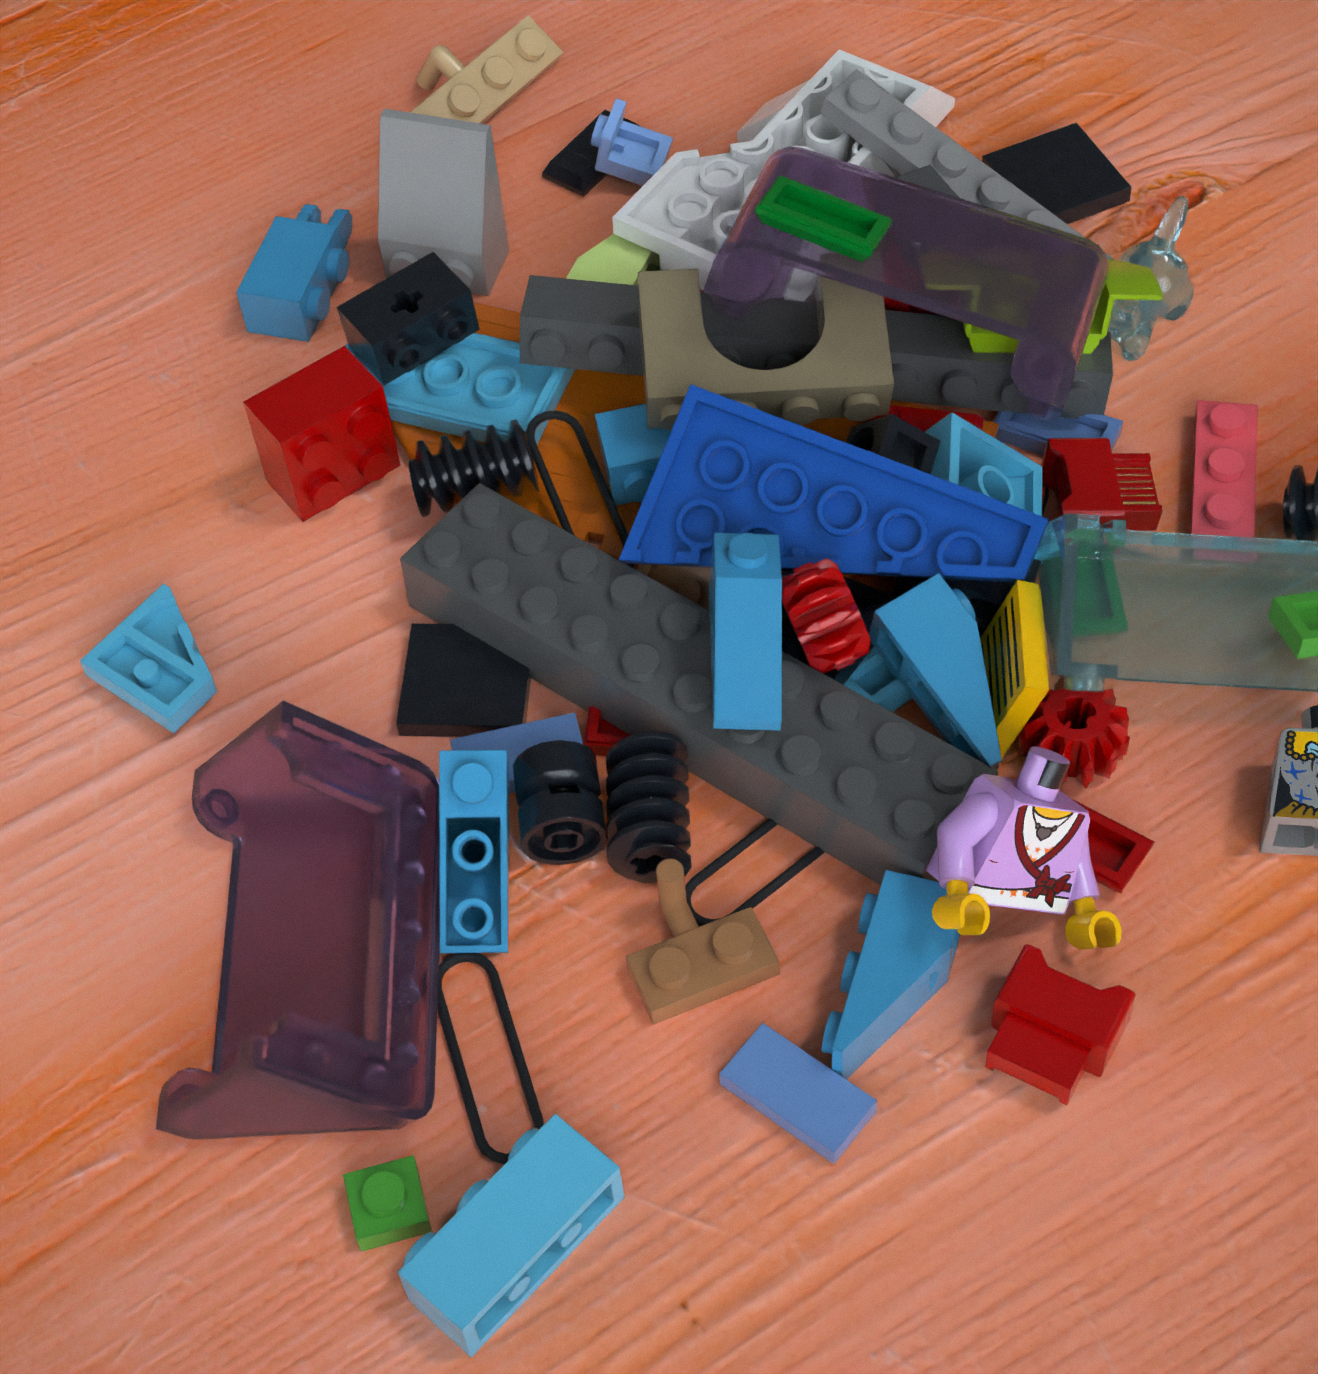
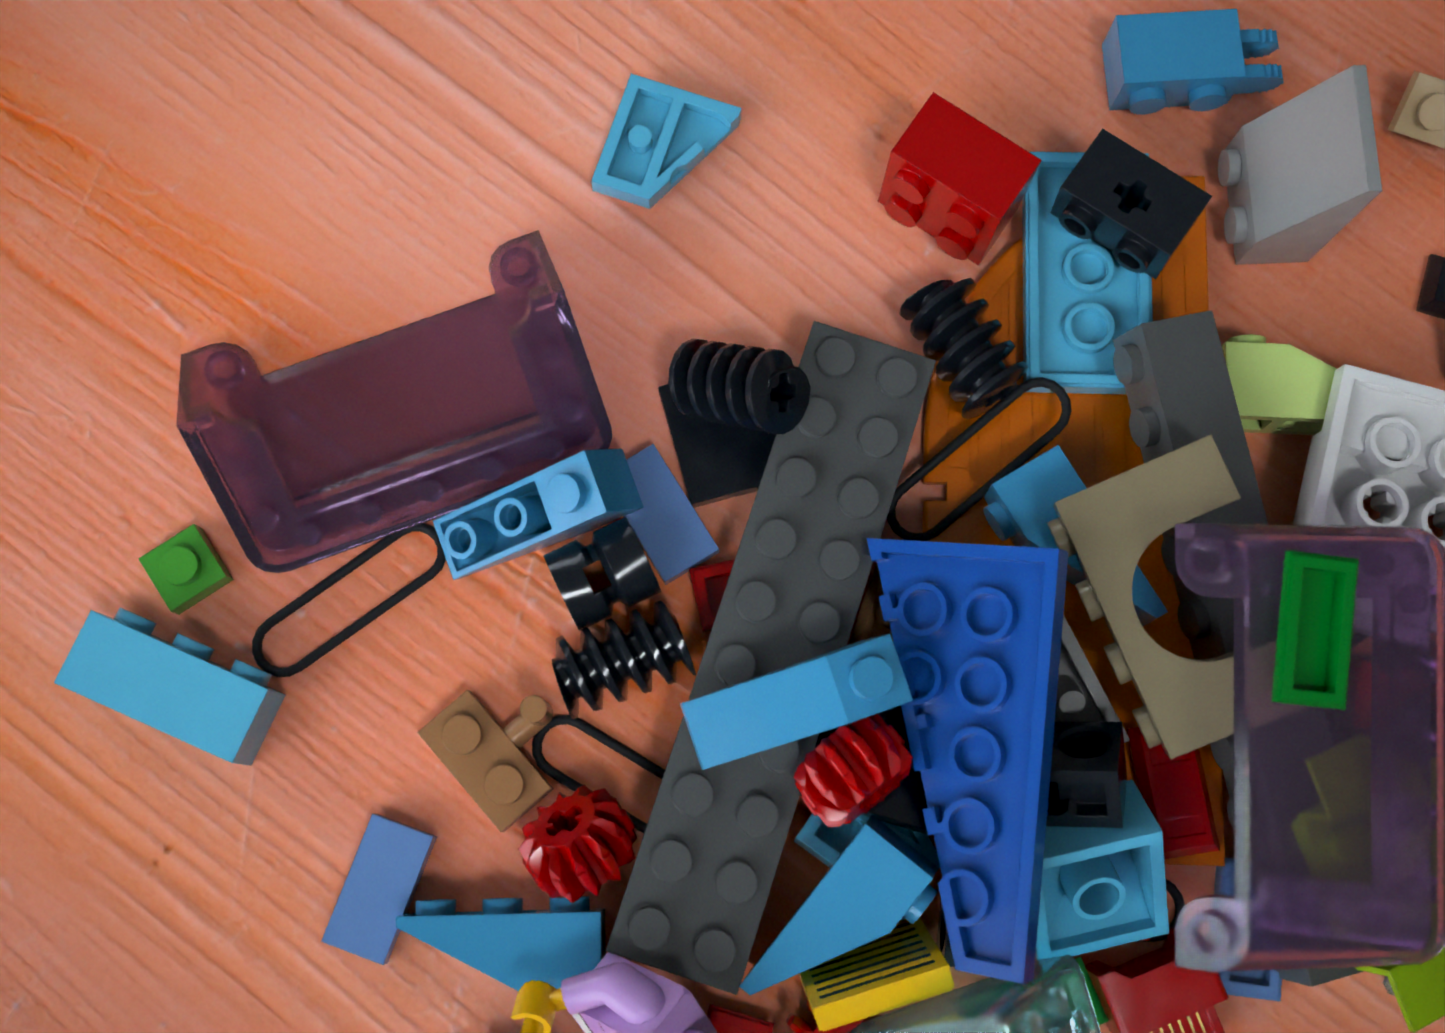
camera: 65 degrees right, 25 degrees up
(434, 626) = (738, 386): none -> black piece
(813, 878) = (578, 843): none -> red gear

